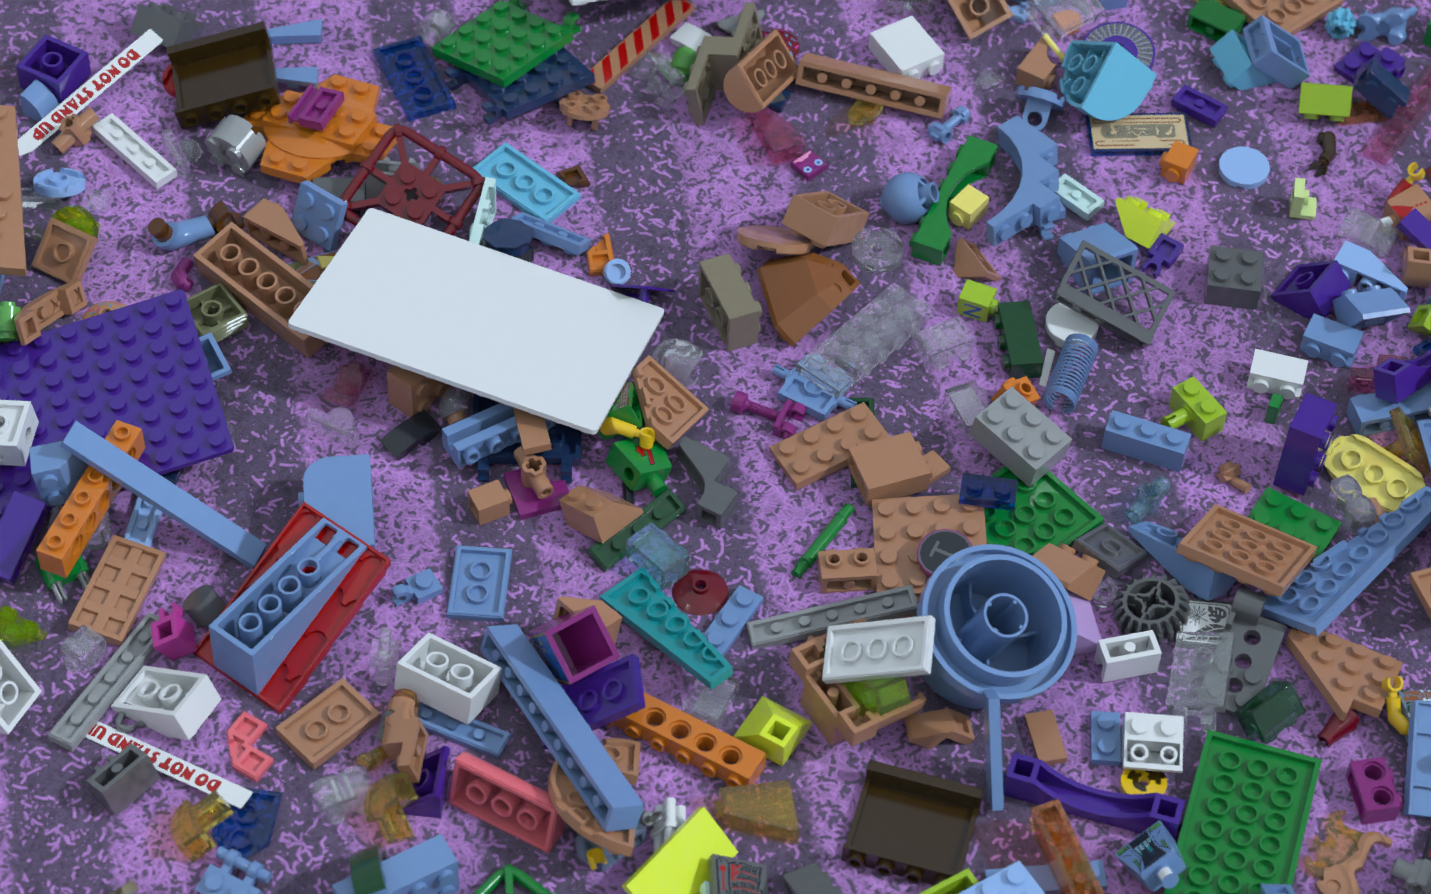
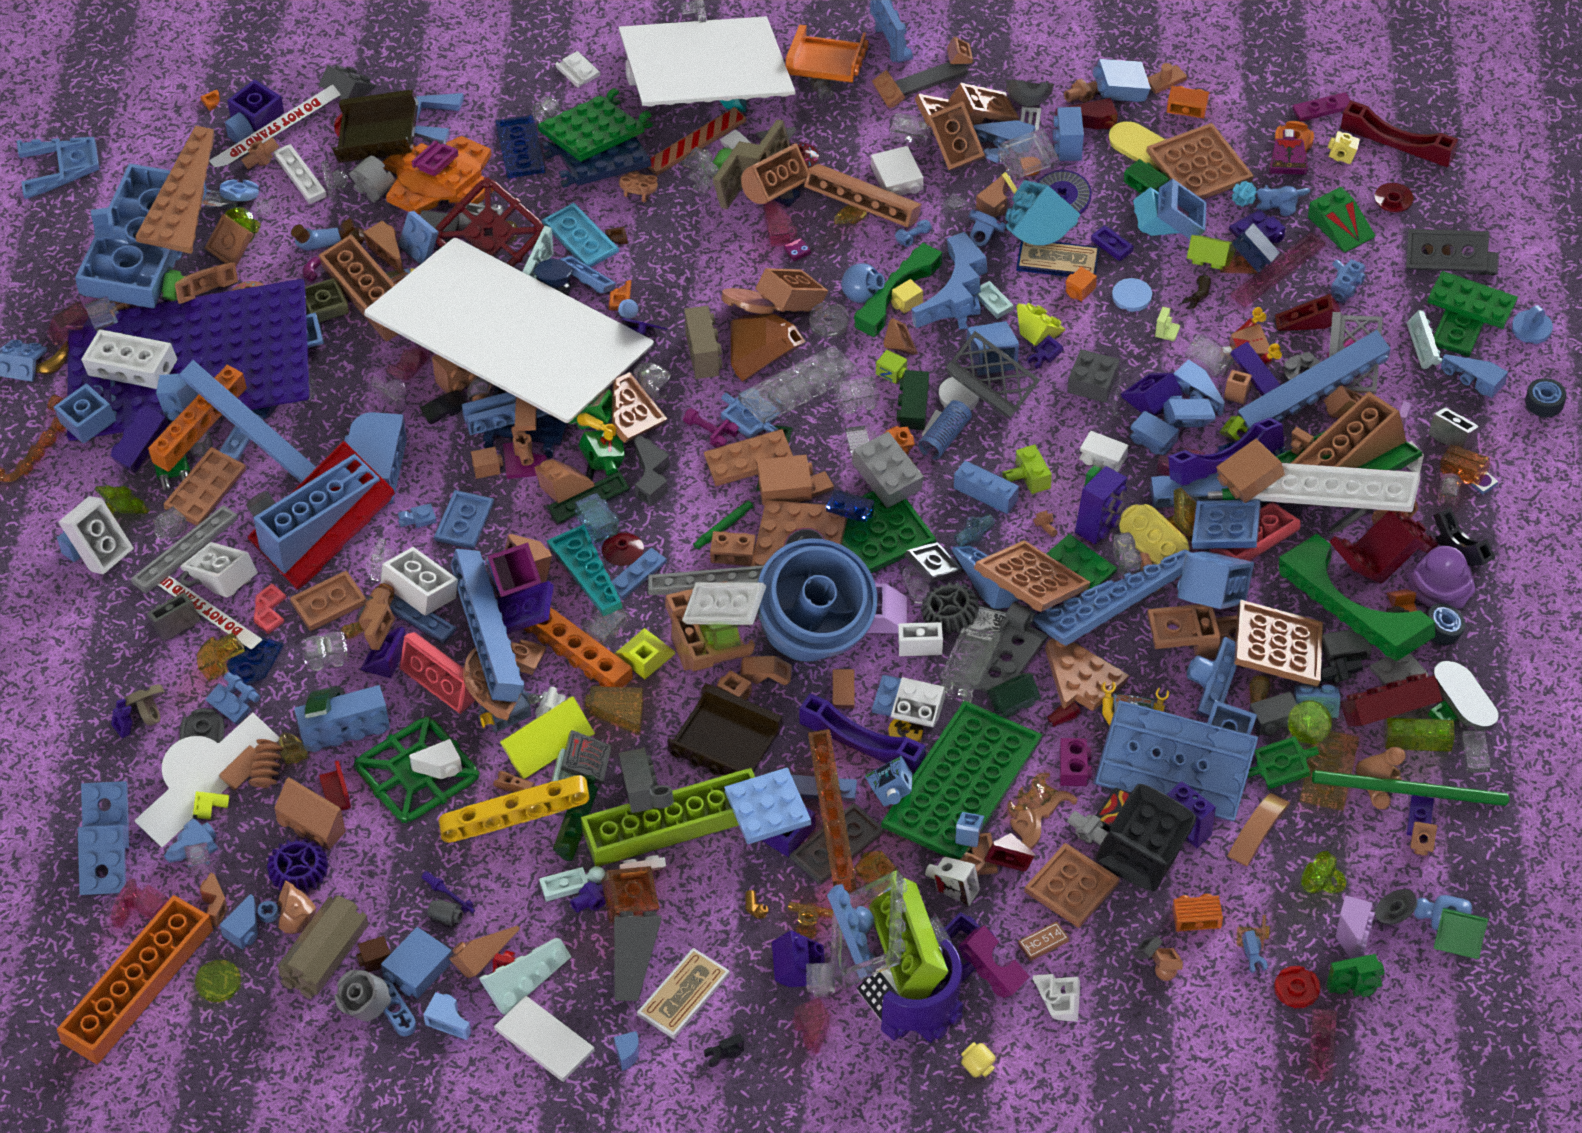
camera: 15 degrees right, 0 degrees up
(173, 634) = (234, 522): dark pink brick -> none
(386, 804) = (351, 662): clear yellow brick -> none
(906, 755) = (735, 685): none -> nougat brick
(993, 750) = (793, 688): medium blue tile -> none
(1075, 573) = (892, 570): nougat slope -> none

